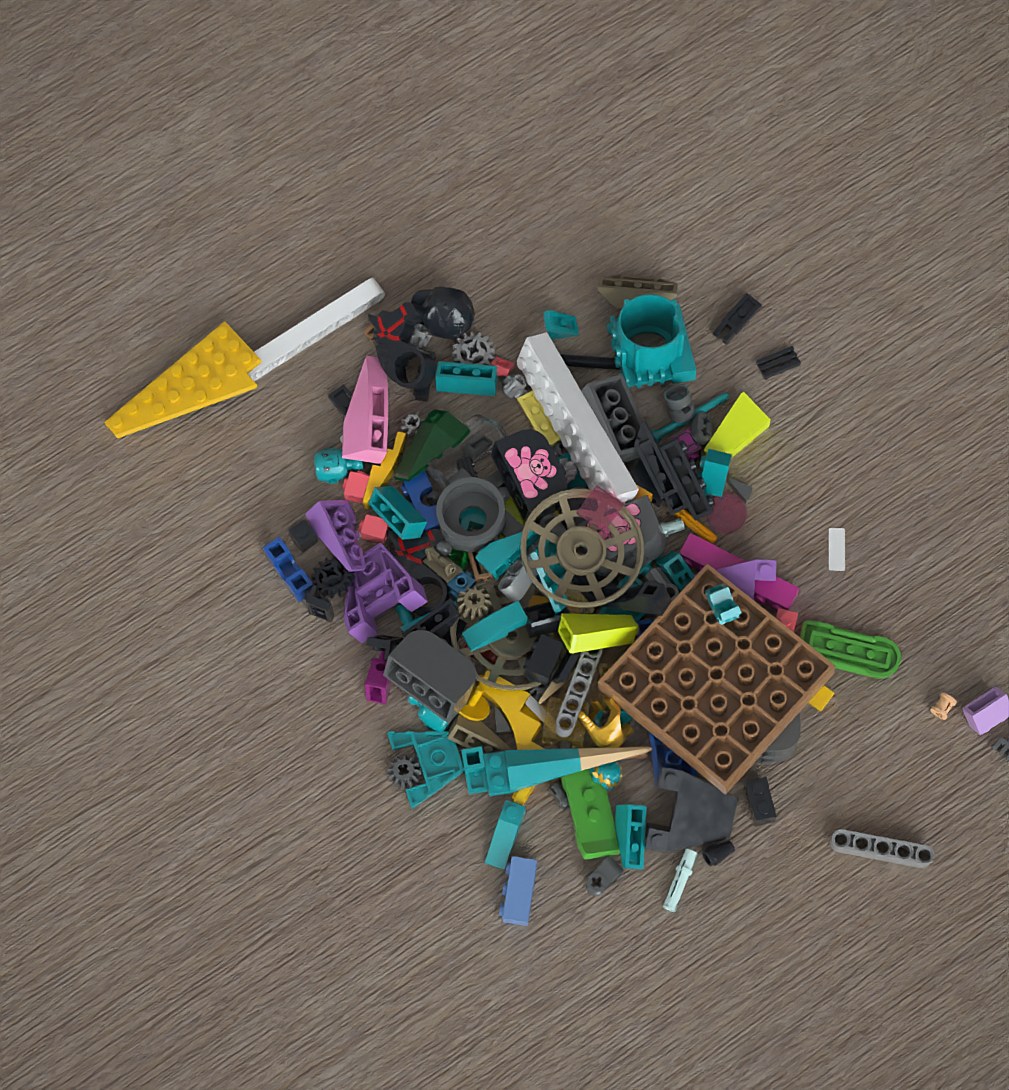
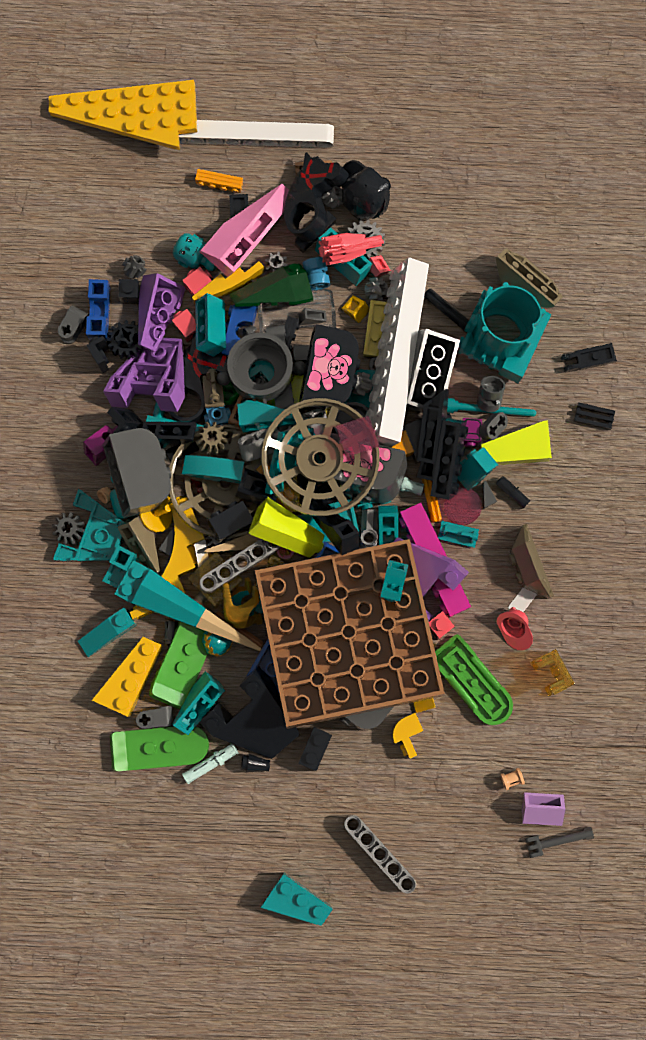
camera: 30 degrees right, 10 degrees up
(274, 596) = (73, 321): none -> dark grey piece
(291, 512) = (134, 267): none -> dark grey gear
(309, 390) = (218, 180): none -> light orange piece
(410, 724) = (104, 494): none -> light nougat hinge
(452, 403) = (316, 273): none -> dark azure wheel
(466, 366) = (346, 247): none -> coral piece
(509, 415) = (356, 308): none -> yellow slope
(518, 890) = (84, 682): medium blue brick -> none
(557, 865) = (129, 679): none -> yellow wedge
(560, 325) = (447, 265): teal slope -> none
(565, 667) = (240, 540): black tile -> none
(608, 657) = (285, 554): none -> tile
(624, 901) = (157, 748): none -> bright green piece
(741, 538) = (458, 534): none -> teal hinge
(759, 471) = (513, 492): none -> black axle
(819, 521) = (528, 564): none -> dark tan wedge
(822, 733) = (403, 730): none -> yellow brick
(844, 938) = (296, 901): none -> teal wedge
(850, 581) = (515, 629): none -> coral piece
(911, 587) = (557, 669): none -> clear yellow panel

